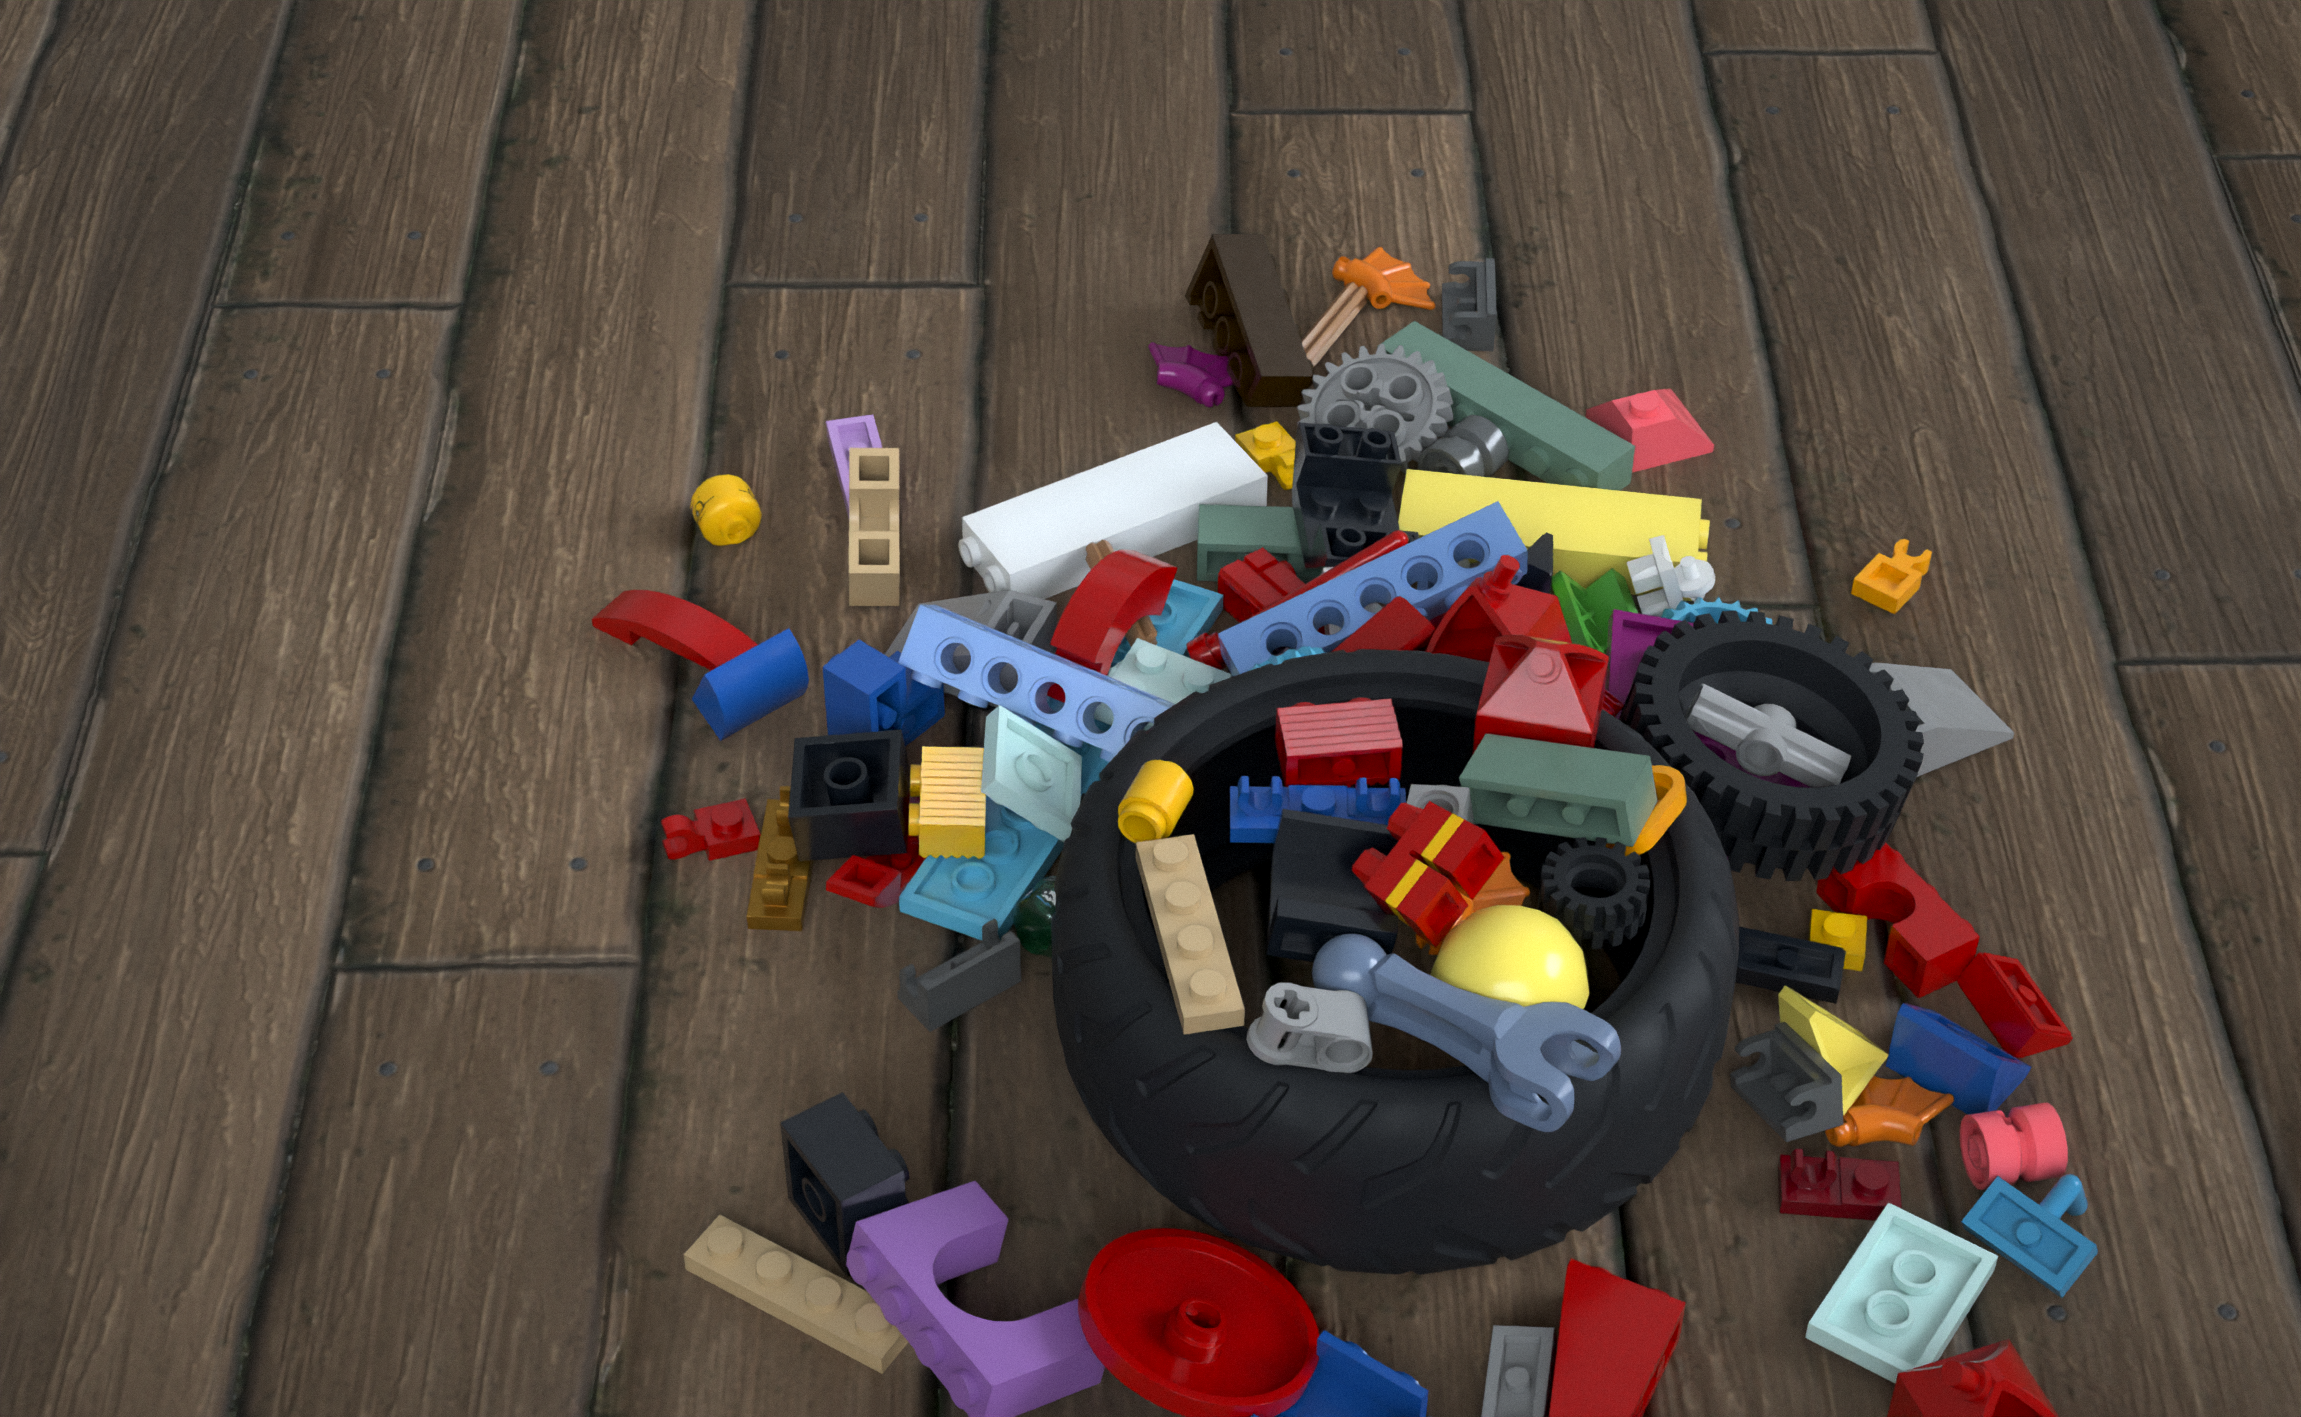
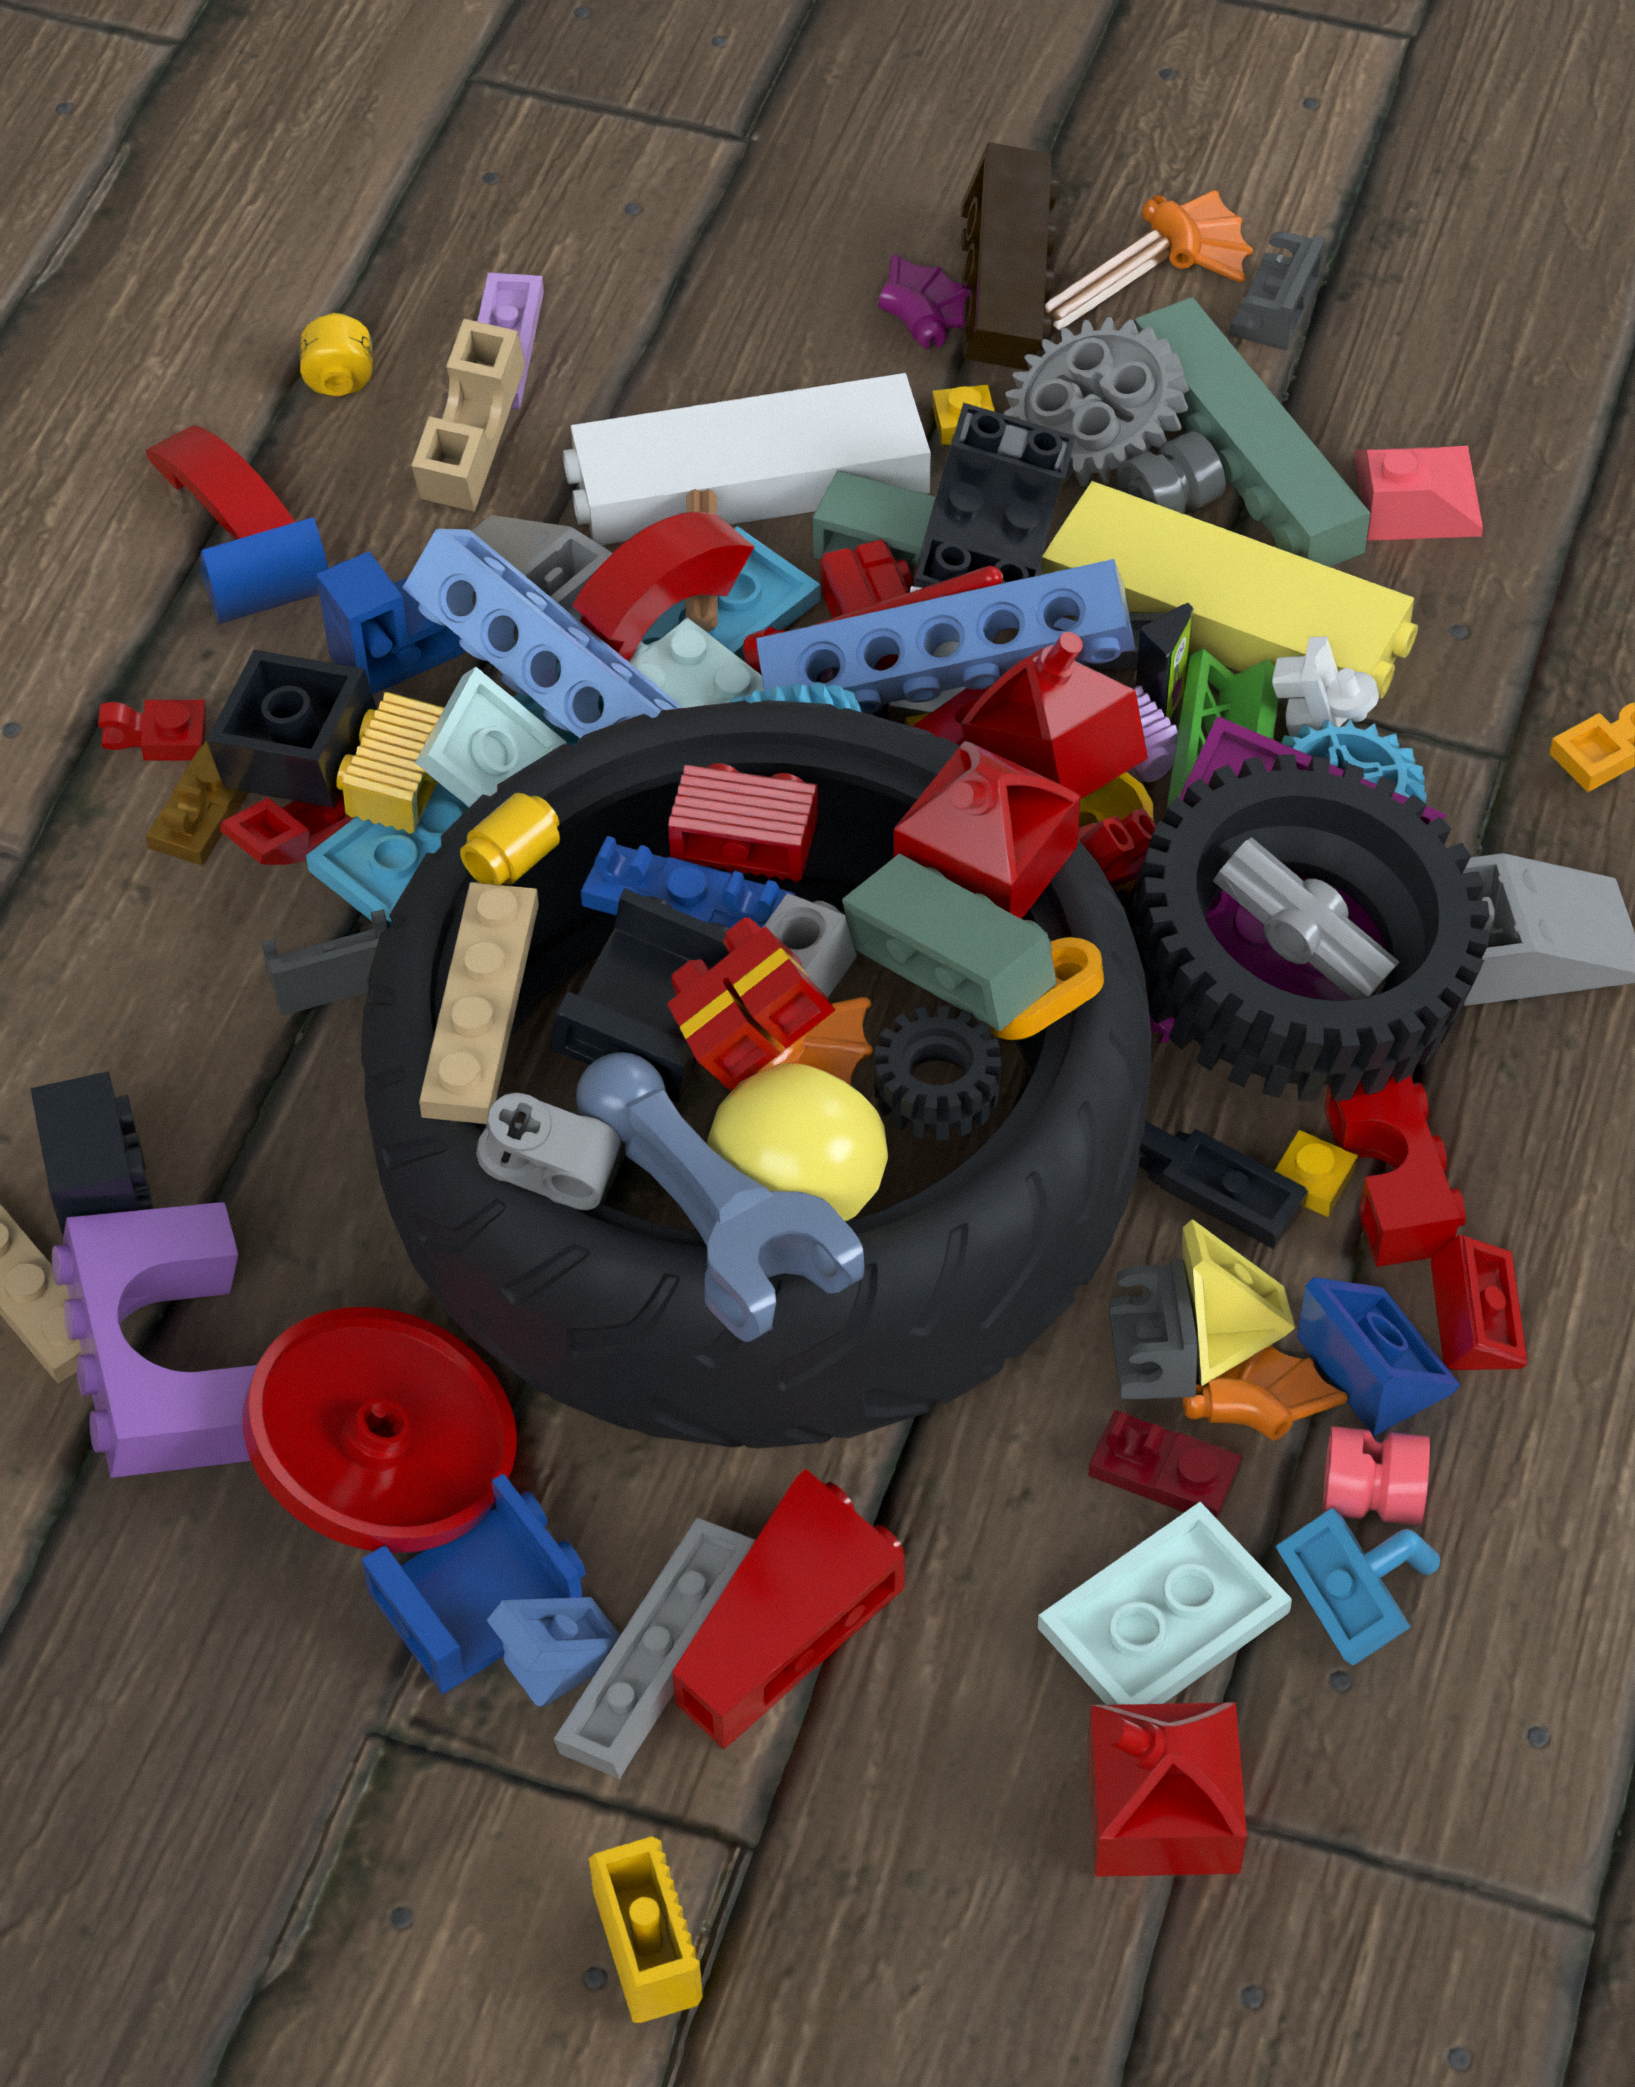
camera: 20 degrees right, 10 degrees up
(1392, 628) = (928, 690): red slope -> none

